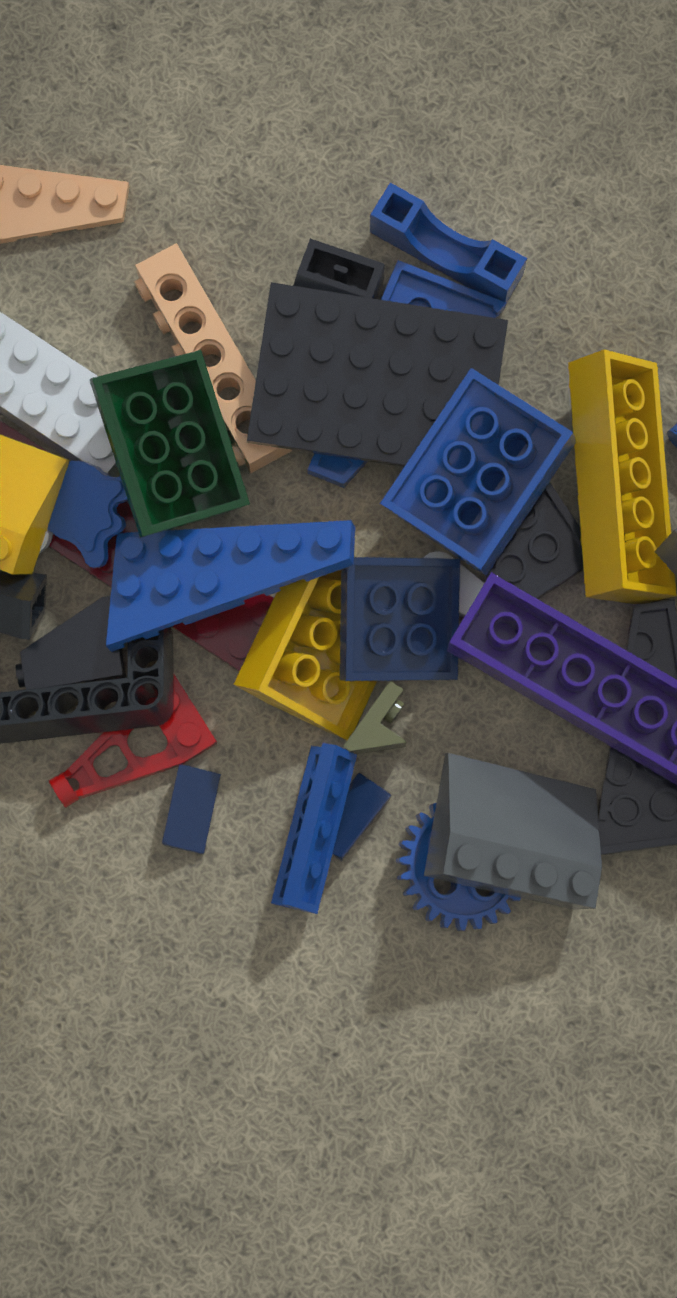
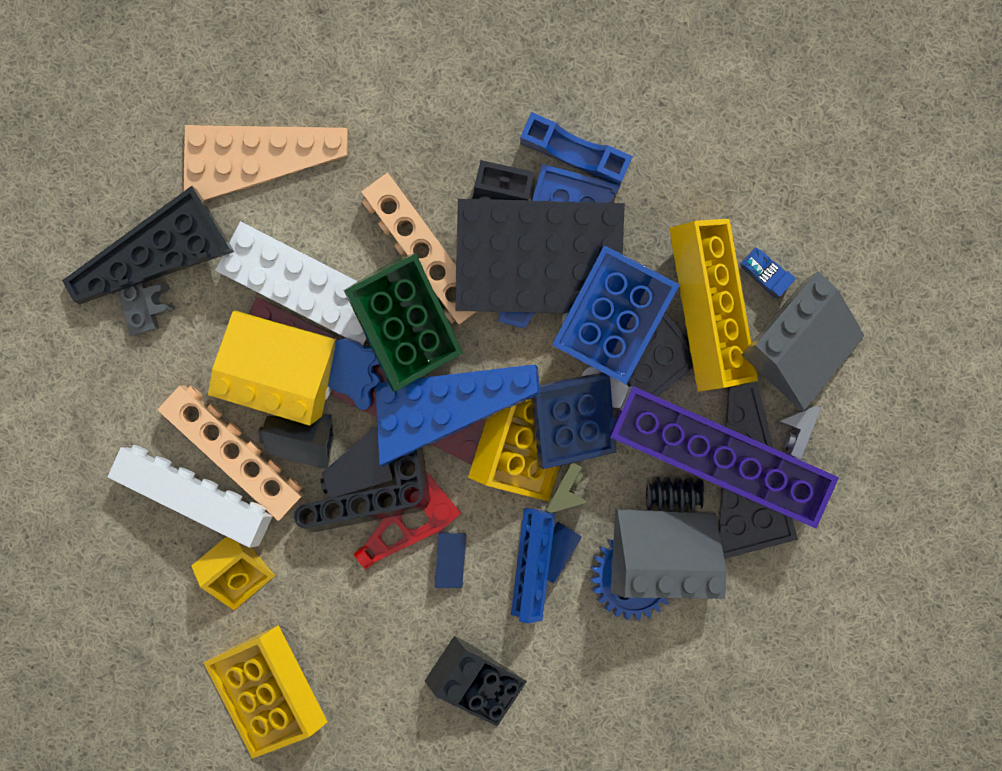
camera: 10 degrees left, 10 degrees up
(204, 997) = (474, 681): none -> black slope
(537, 749) = (675, 493): none -> black piece

